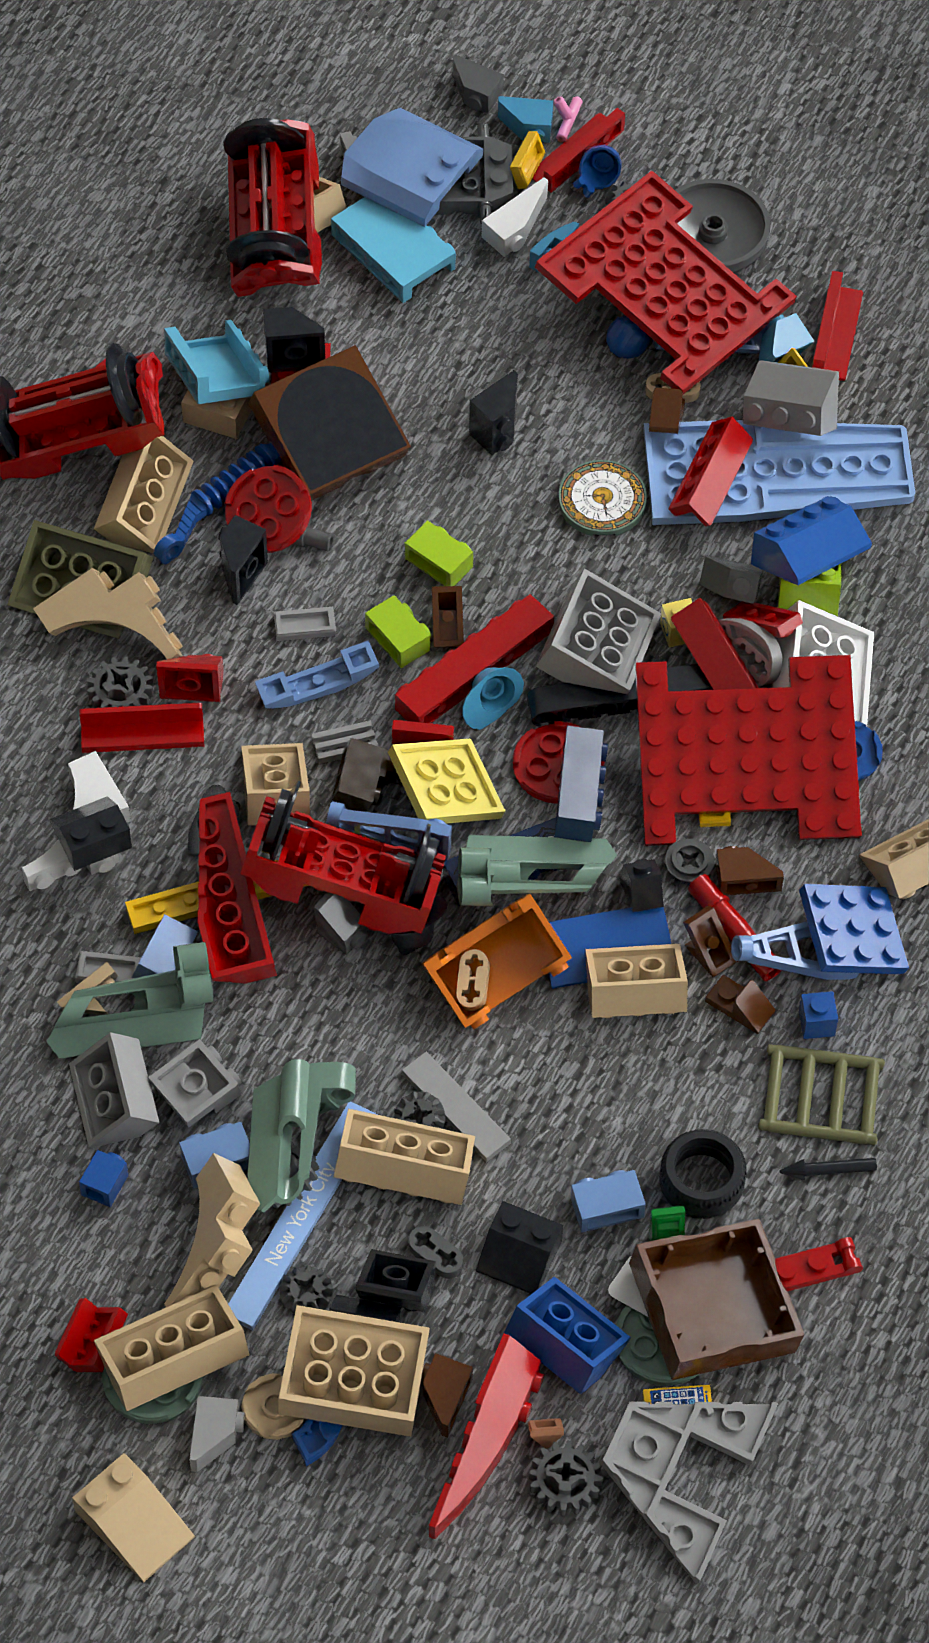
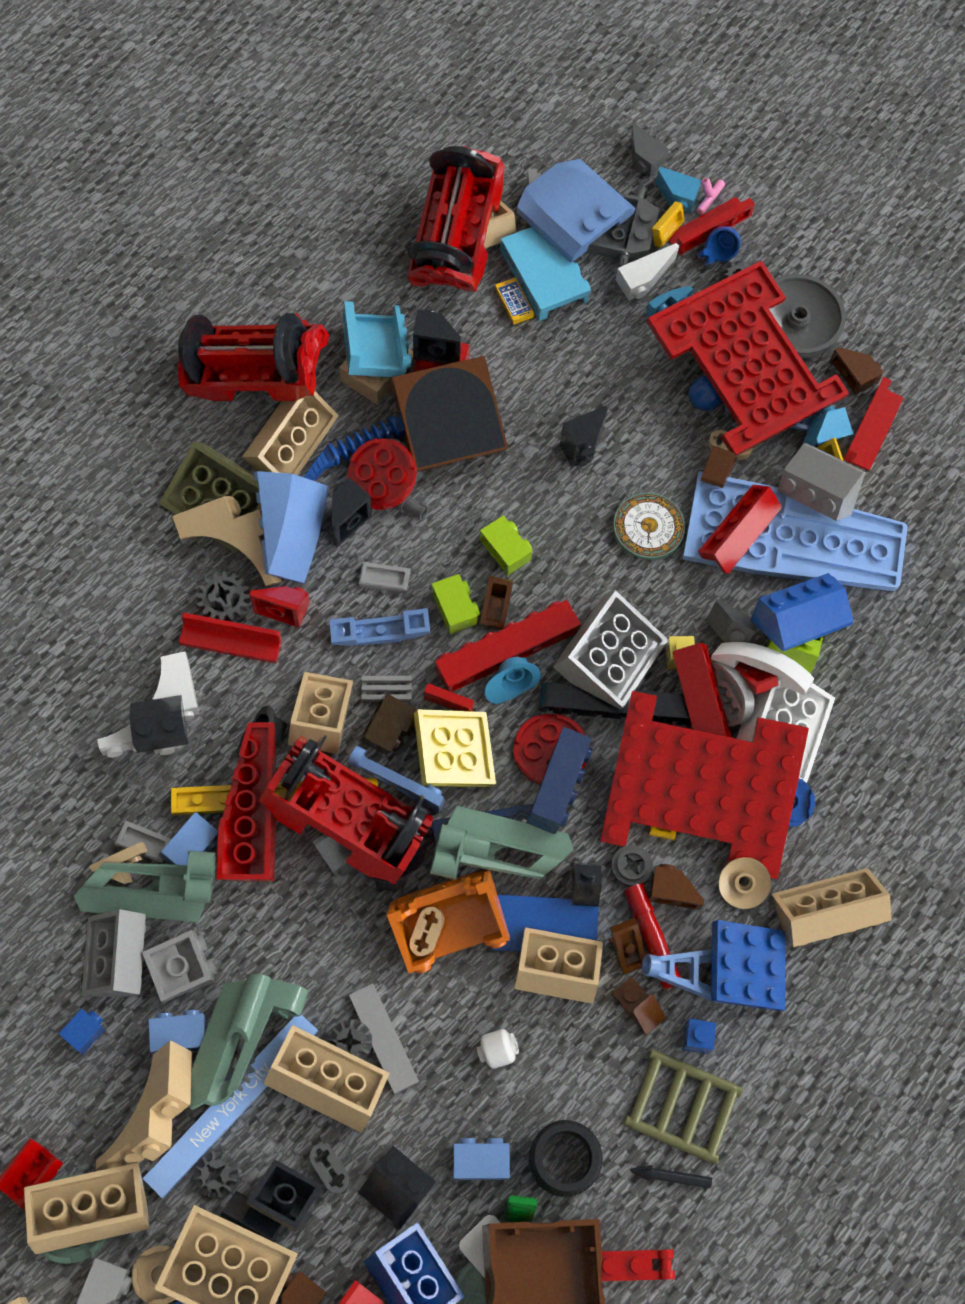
camera: 10 degrees right, 10 degrees up
(180, 578) = (291, 522): none -> medium blue wedge
(366, 286) = (514, 301): none -> tile
(592, 1082) = (498, 1048): none -> white head
(798, 270) = (857, 369): none -> reddish brown slope
(817, 608) = (766, 659): none -> white slope
(840, 846) = (751, 893): none -> tan dish

